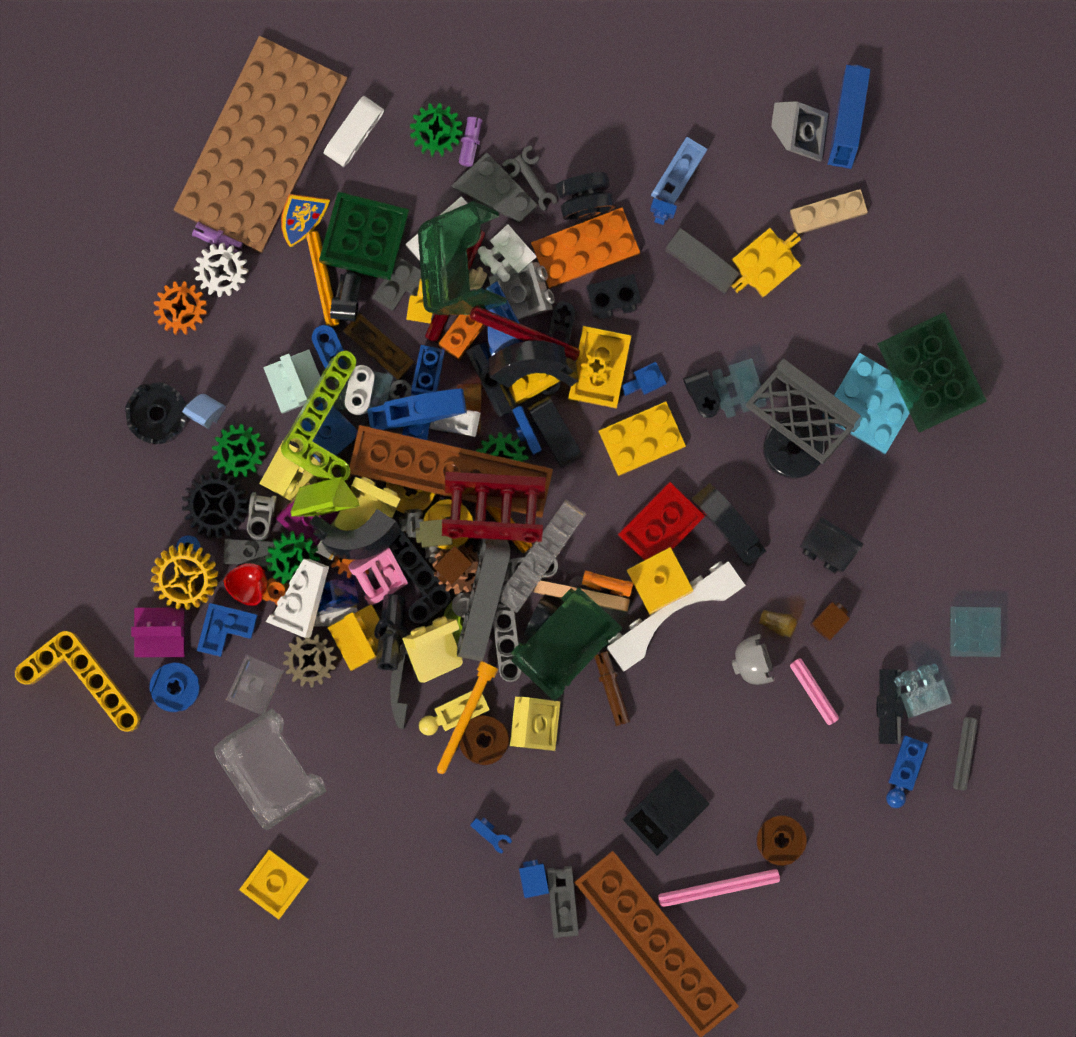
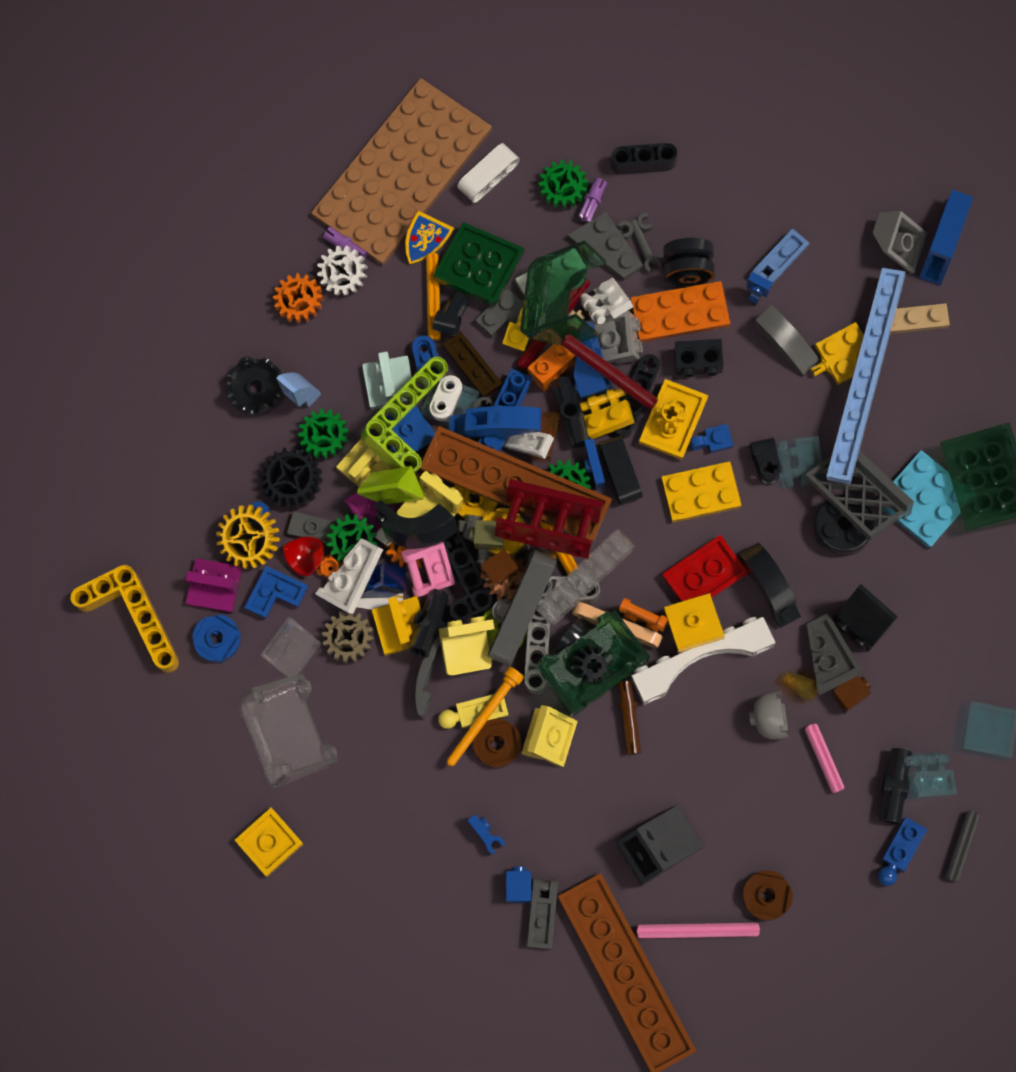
camera: 20 degrees right, 10 degrees down
(261, 514) = (331, 492): light grey piece -> none
(525, 76) = (652, 151): none -> black beam
(530, 358) = (611, 393): black arch -> none
(565, 634) = (599, 670): none -> black gear
(790, 286) = (866, 376): none -> light blue plate
(804, 589) = (831, 656): none -> dark grey wing

